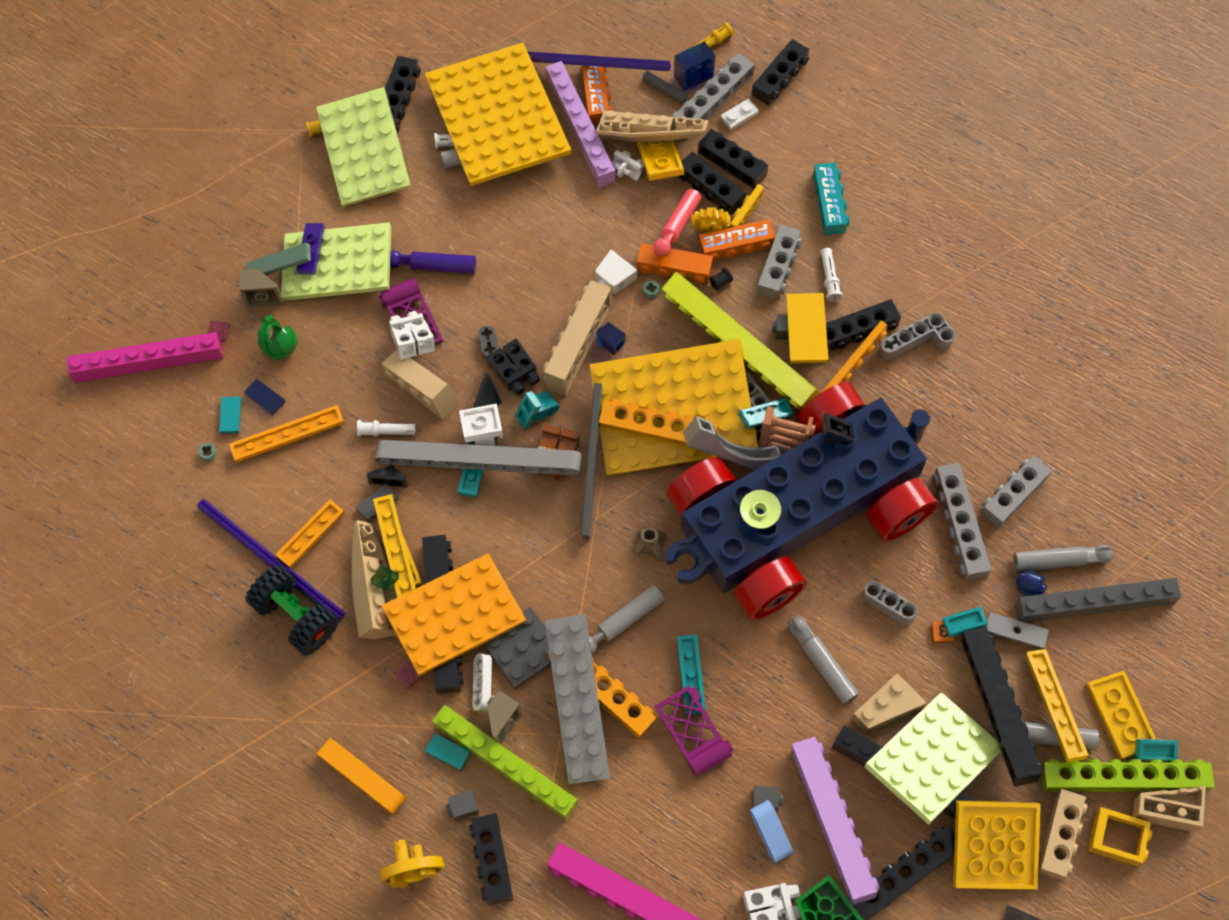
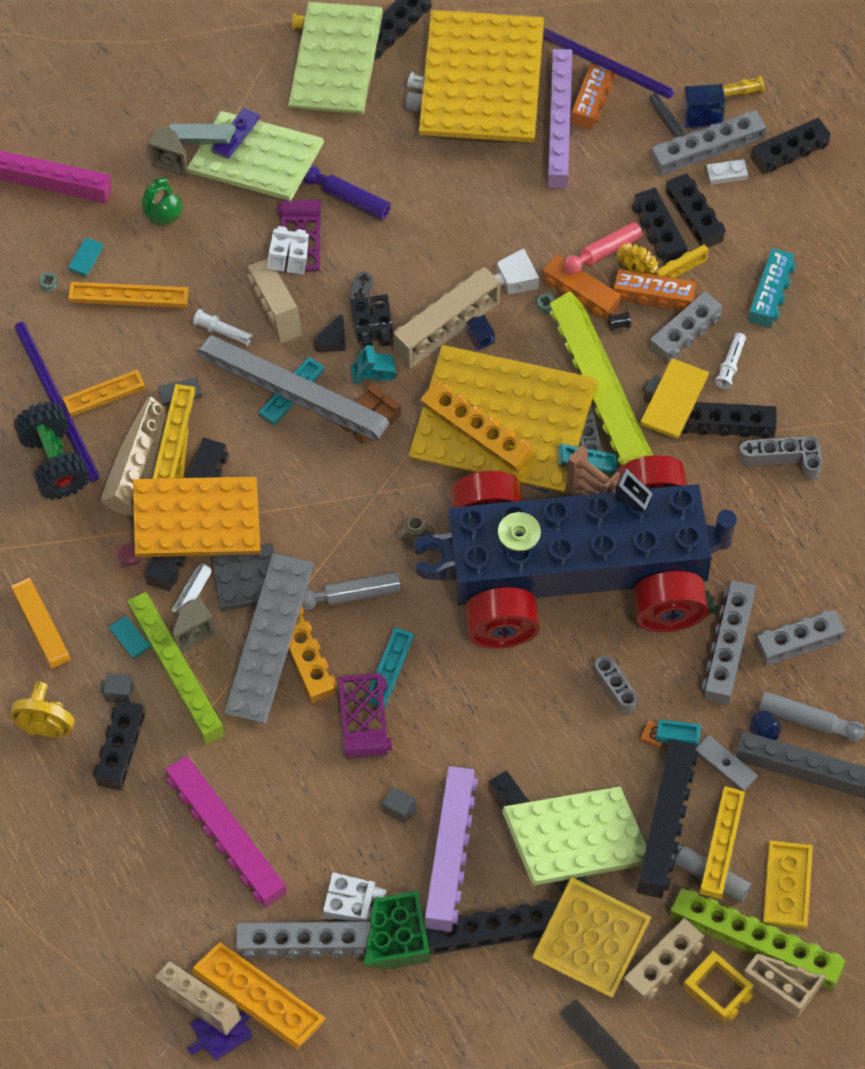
camera: 25 degrees right, 5 degrees down
(221, 328) = (116, 174): clear pink plate -> none
(264, 397) = (125, 253): clear blue tile -> none
(384, 578) = (148, 457): clear green tile -> none
(387, 475) = (203, 371): black slope -> none
(481, 425) = (311, 359): white panel -> none
(592, 461) = (396, 436): dark grey tile -> none
(625, 165) = (584, 176): white hips -> none
(648, 127) = (621, 146): tan wedge -> none
(660, 159) = (621, 177): yellow tile -> none
(704, 437) = (509, 451): light grey arch -> none
(771, 831) = (386, 832): light blue beam -> none
(823, 661) = (522, 710): light grey piece -> none
(856, 359) = (719, 442): light orange plate -> none
(888, 704) = (559, 773): tan wedge -> none
(1156, 749) = (802, 927): teal tile -> none

